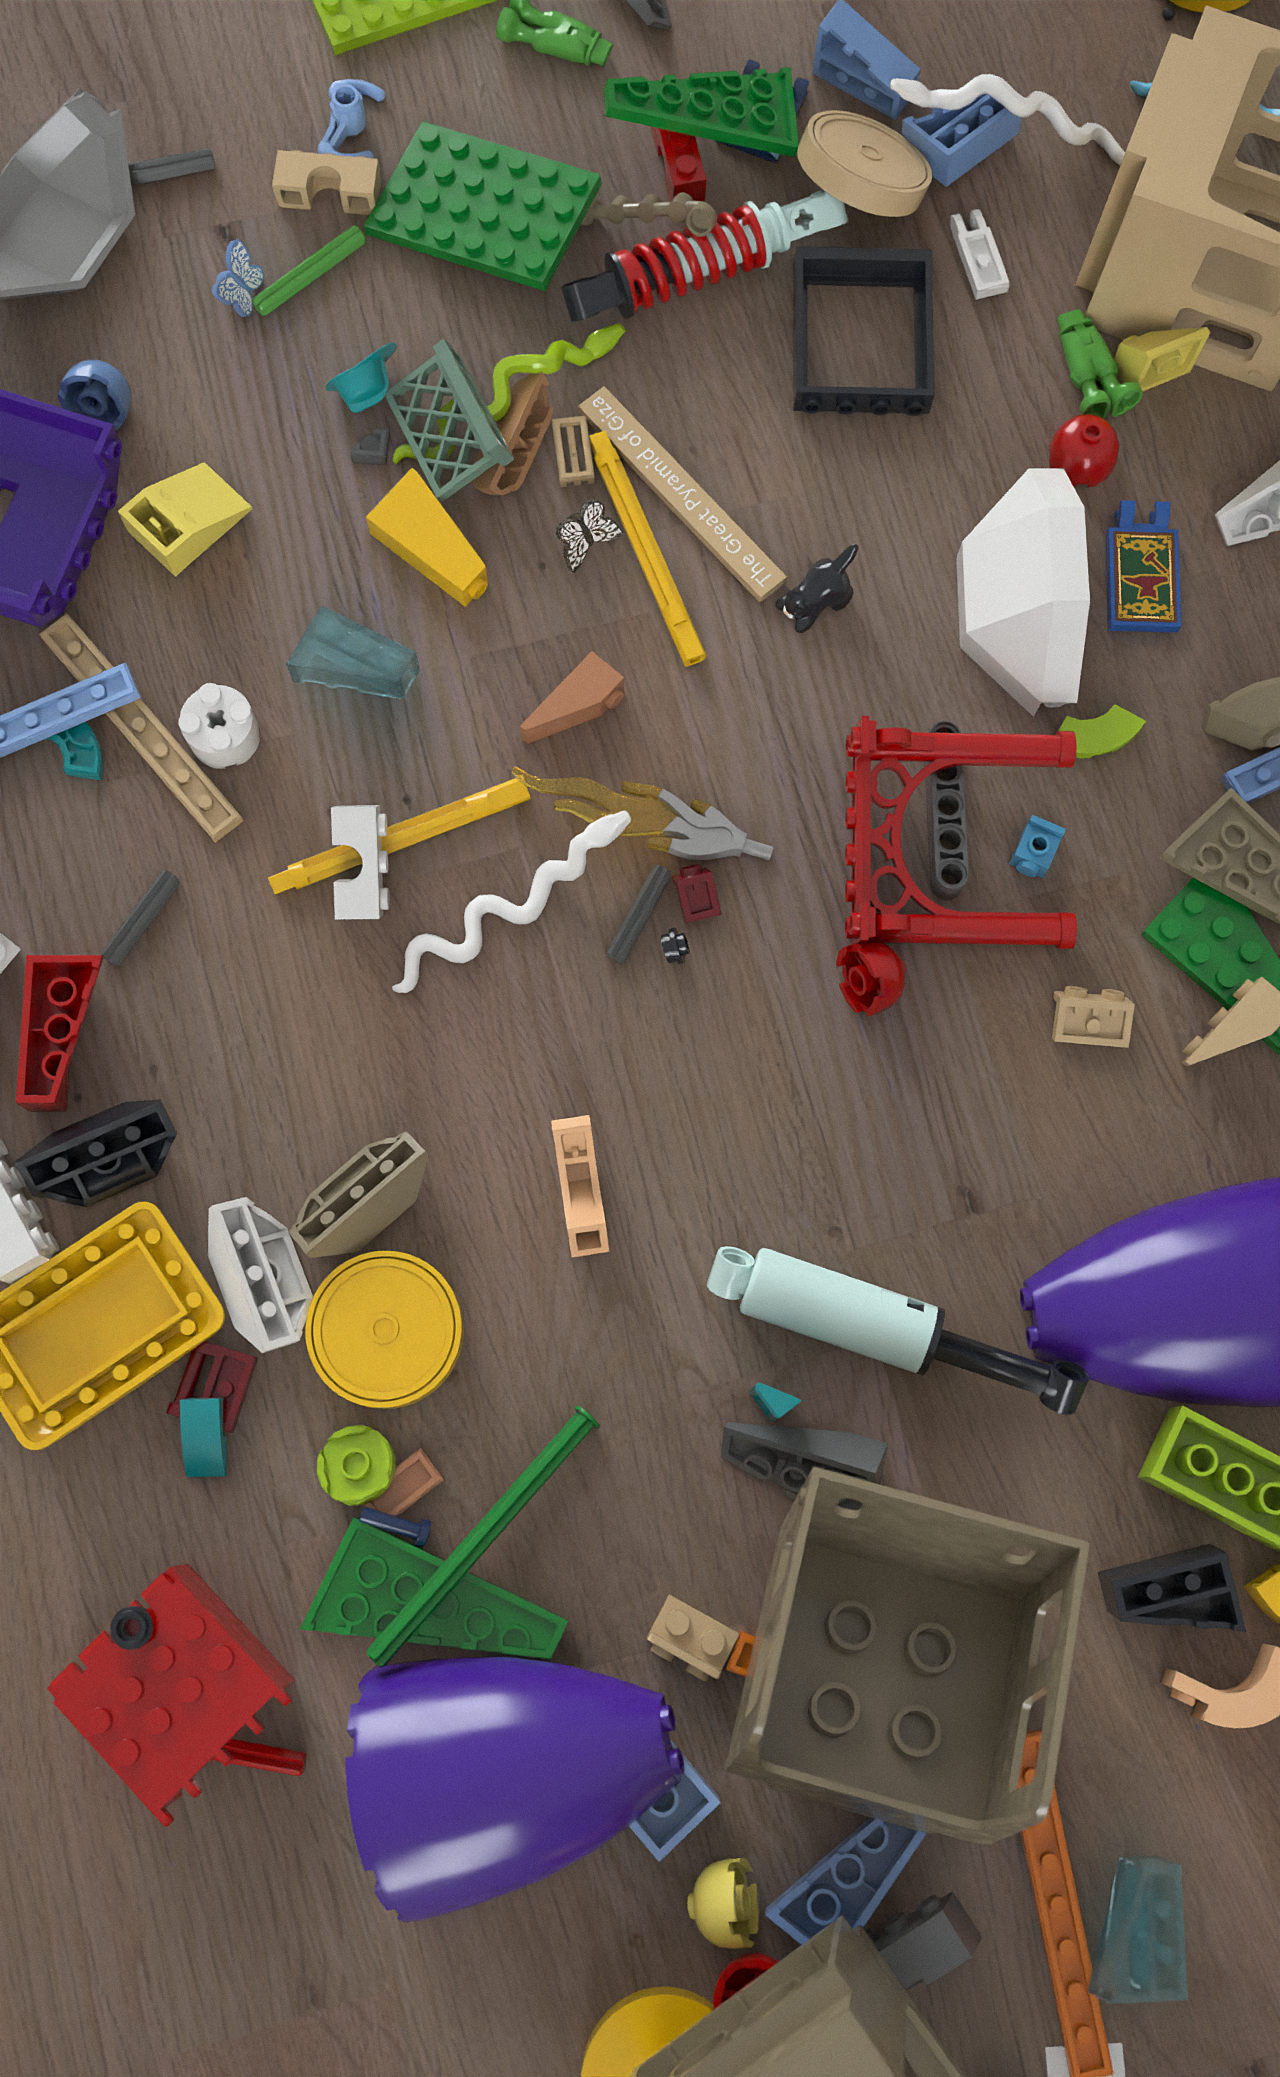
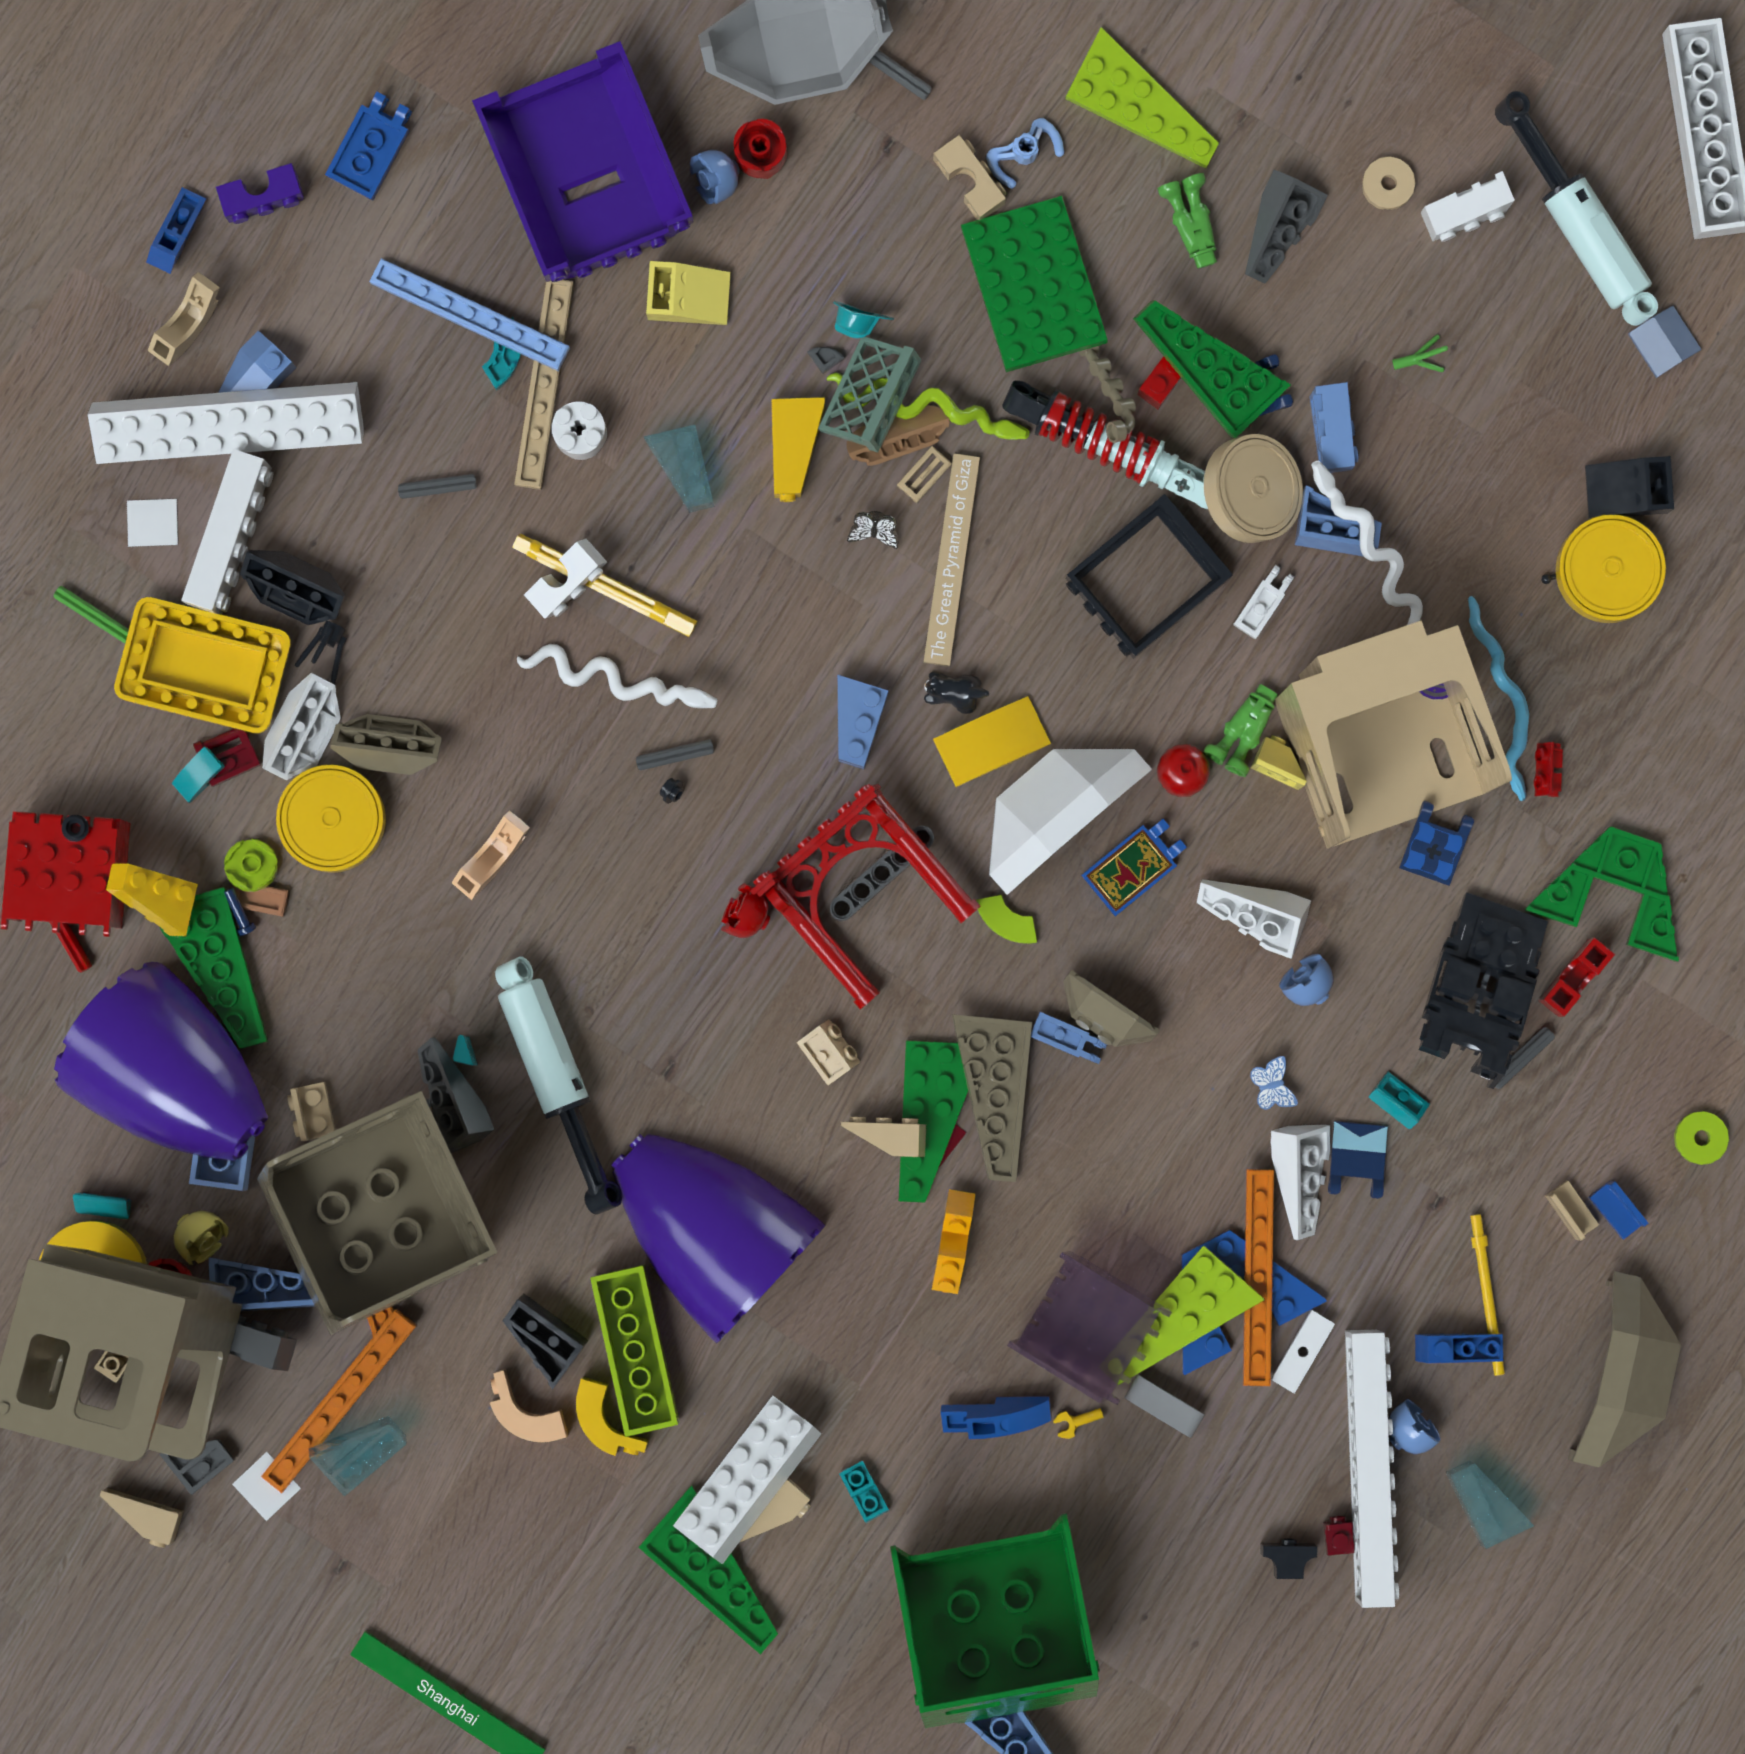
camera: 50 degrees right, 10 degrees up
(52, 1015) = (341, 495): red wedge -> none
(113, 330) = (753, 135): none -> red brick
(188, 1163) = (328, 635): none -> black plant
(236, 283) = (857, 186): medium blue animal -> none
(292, 1603) = (155, 895): none -> yellow wedge
(308, 270) = (904, 218): bright green axle -> none
(481, 1537) = (271, 961): green axle -> none
(578, 699) = (773, 613): nougat slope -> none
(591, 1992) = (102, 1205): none -> teal slope
(647, 550) = (897, 571): yellow piece -> none
(696, 893) = (712, 775): dark red bracket -> none
(702, 827) = (742, 719): piece -> none
(765, 702) = (858, 719): none -> medium blue wedge
(900, 599) = (991, 741): none -> yellow slope
(1040, 834) = (913, 942): dark azure brick -> none

